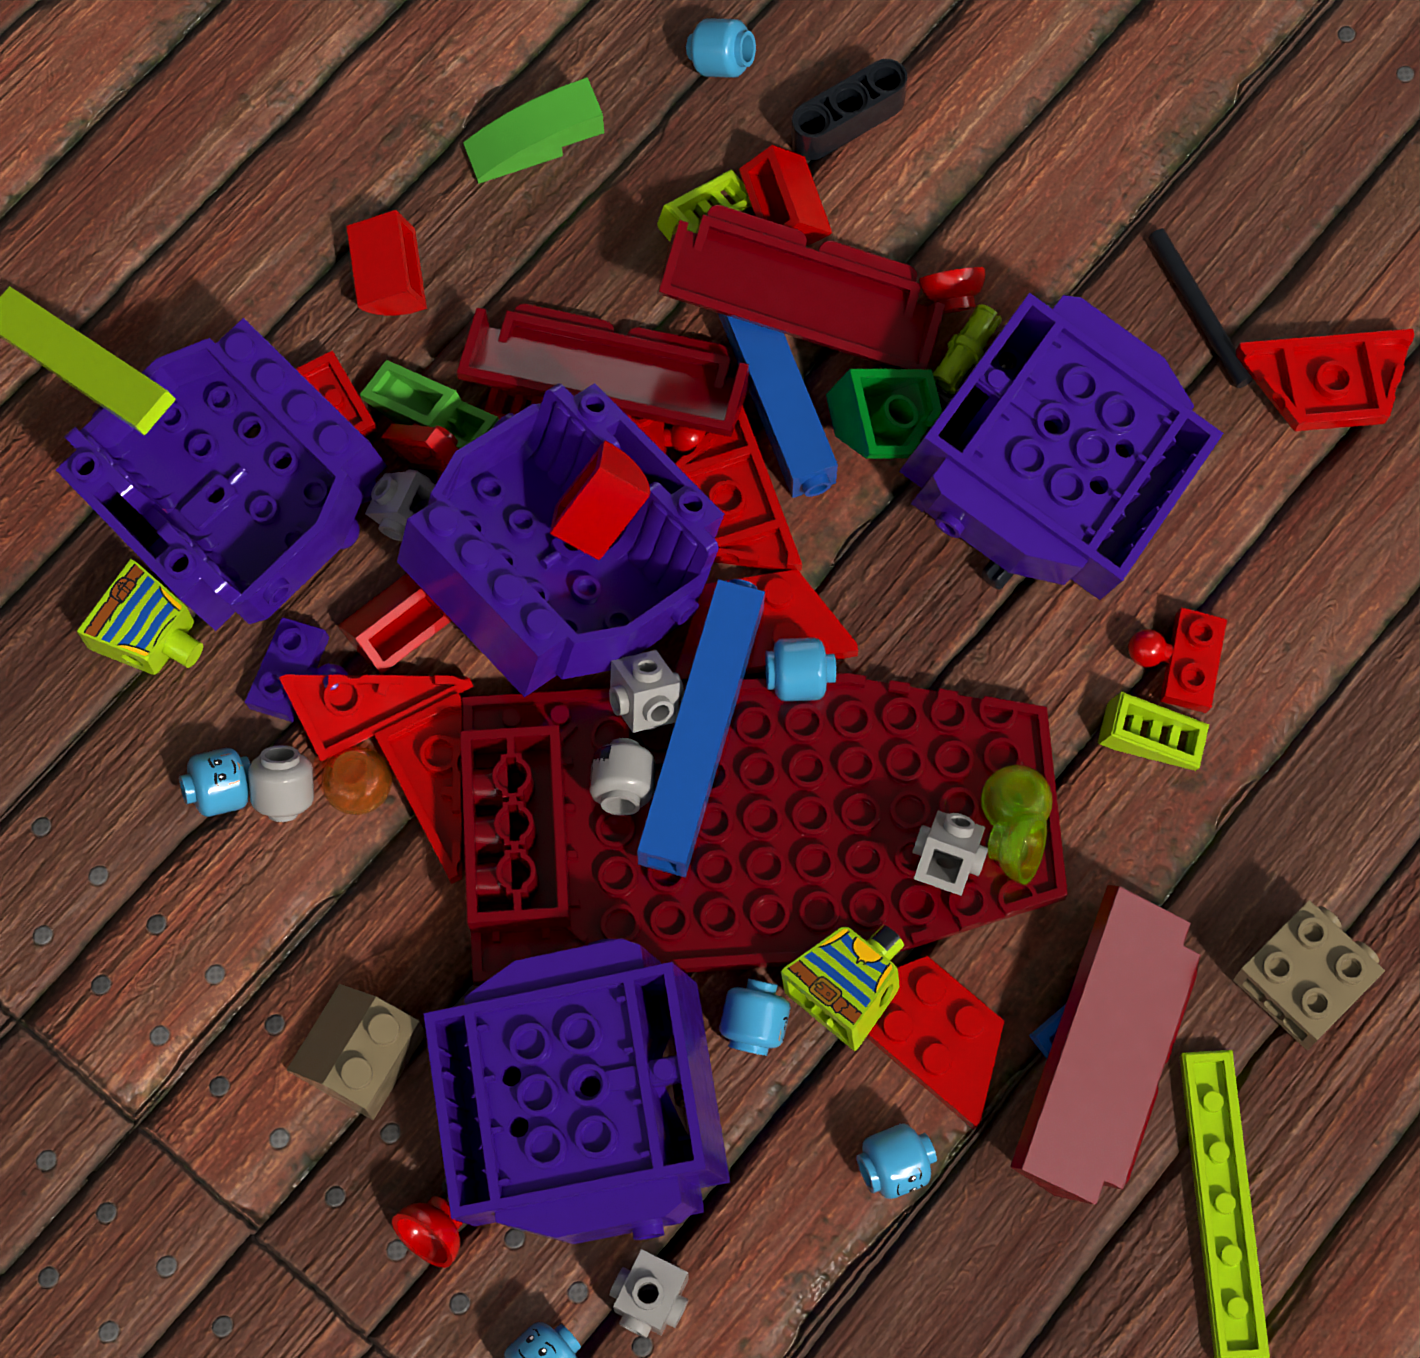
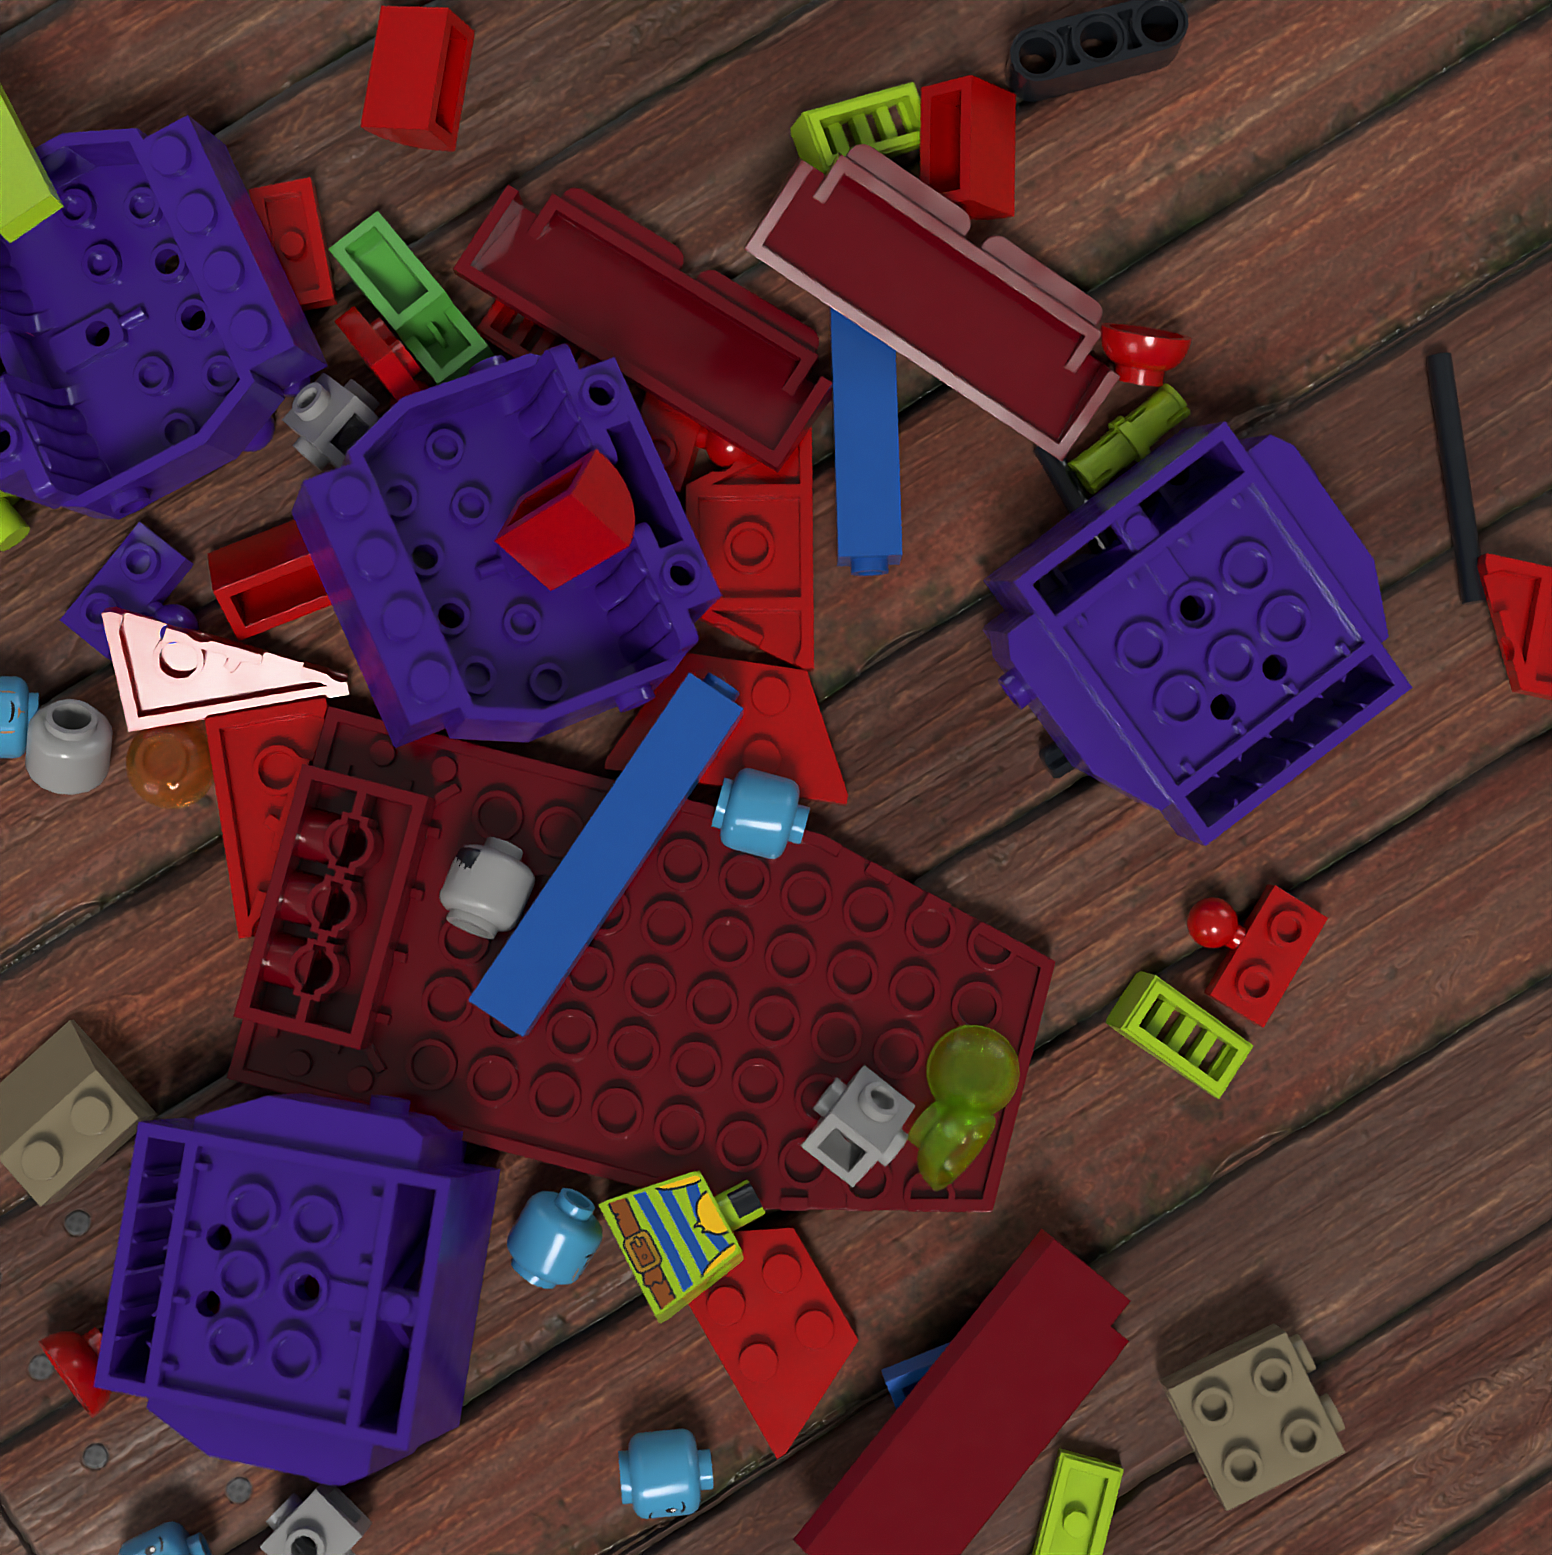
camera: 20 degrees right, 15 degrees up
(645, 691) = (550, 787): light grey brick -> none
(883, 410) = (989, 501): green slope -> none

